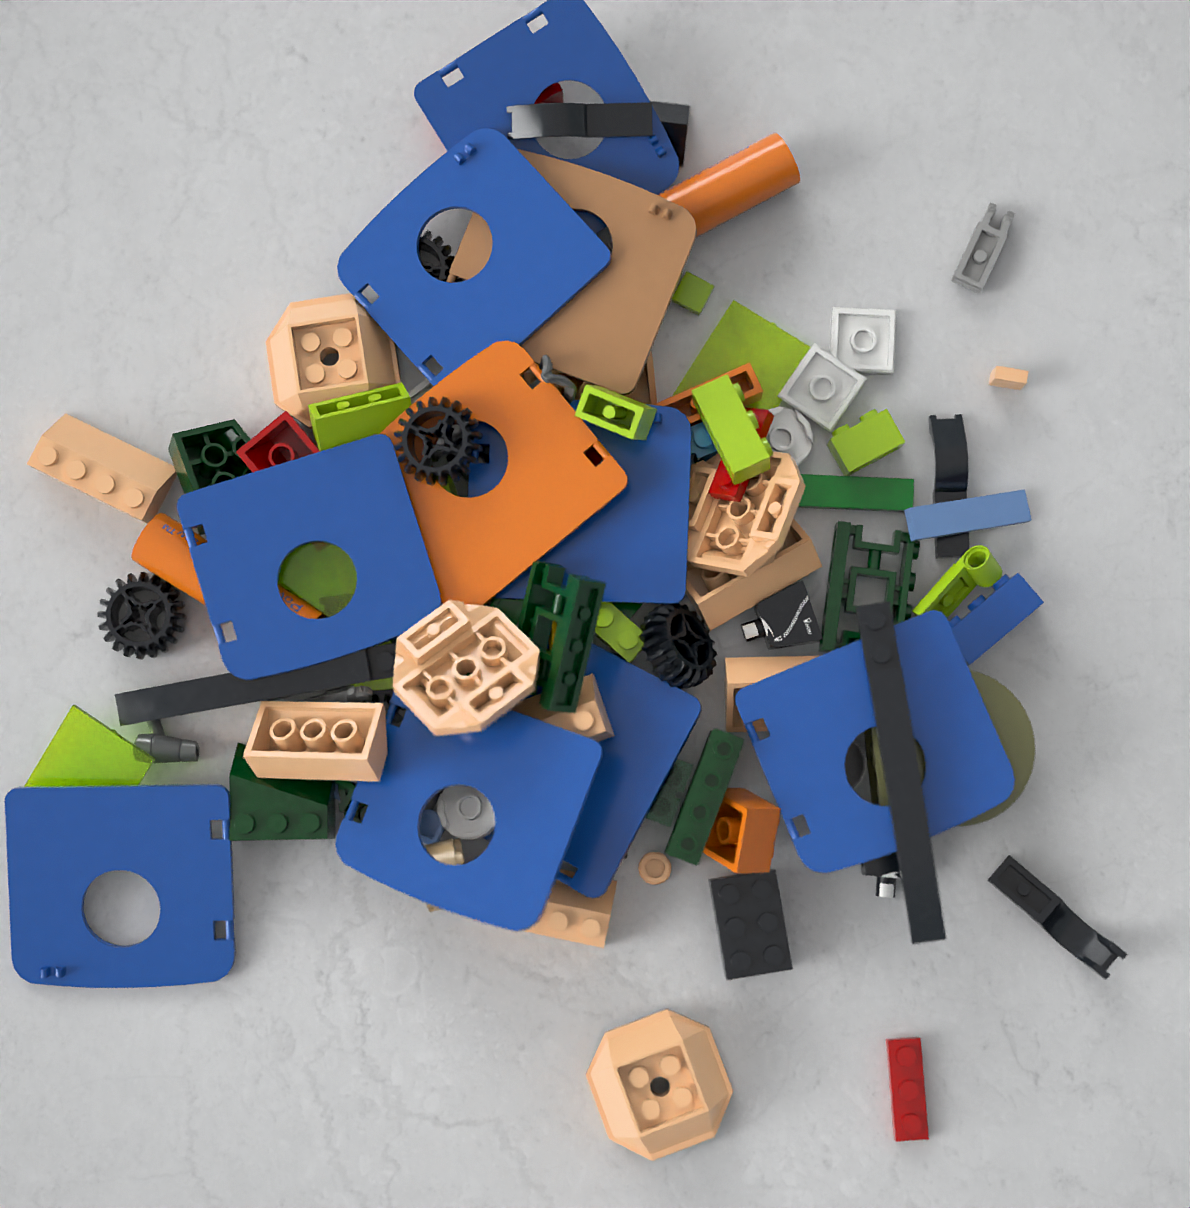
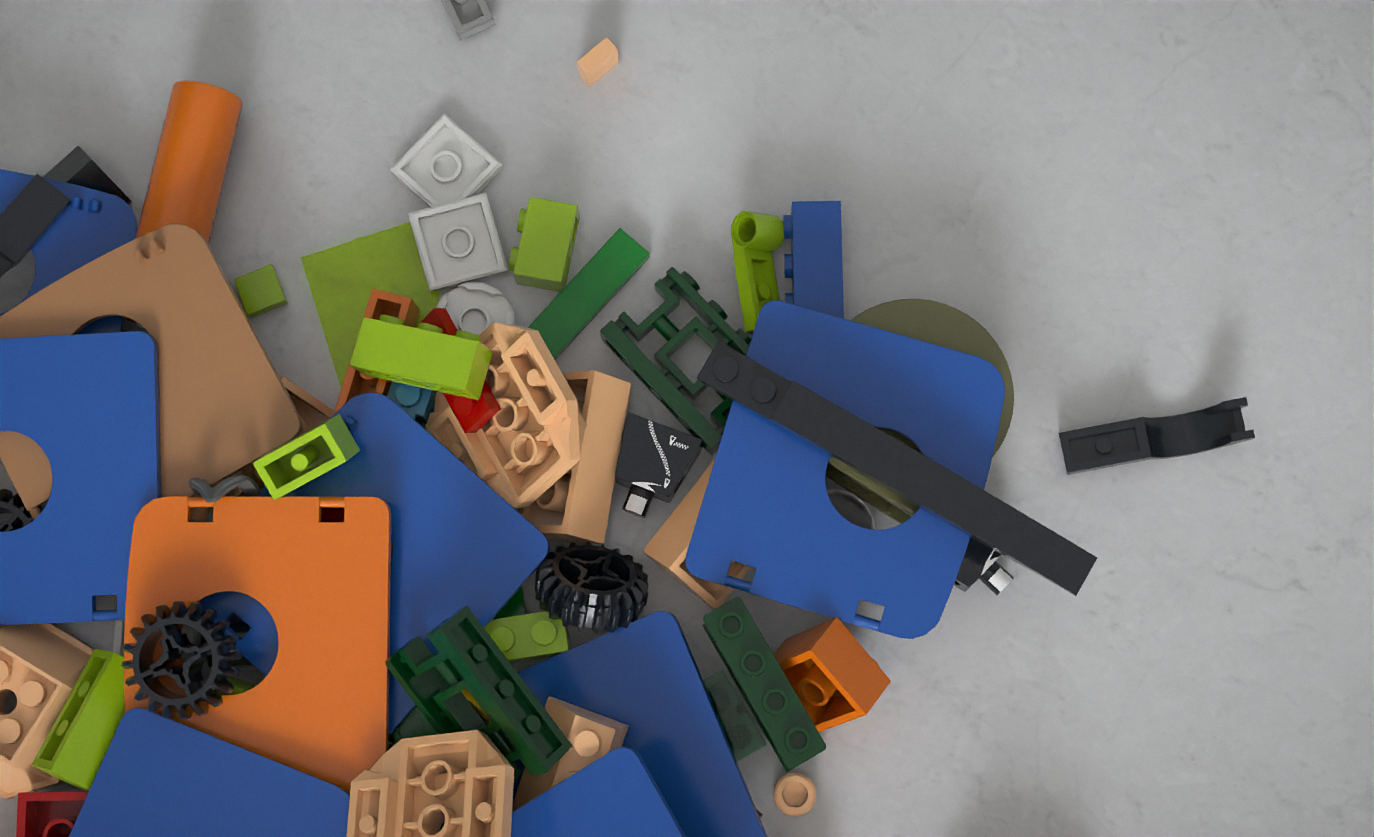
camera: 50 degrees left, 5 degrees down
(750, 924) = (928, 744): black brick -> none
(907, 1089) = (1213, 720): red plate -> none
(950, 476) = (656, 200): black piece -> none
(967, 515) = (696, 205): medium blue tile -> none

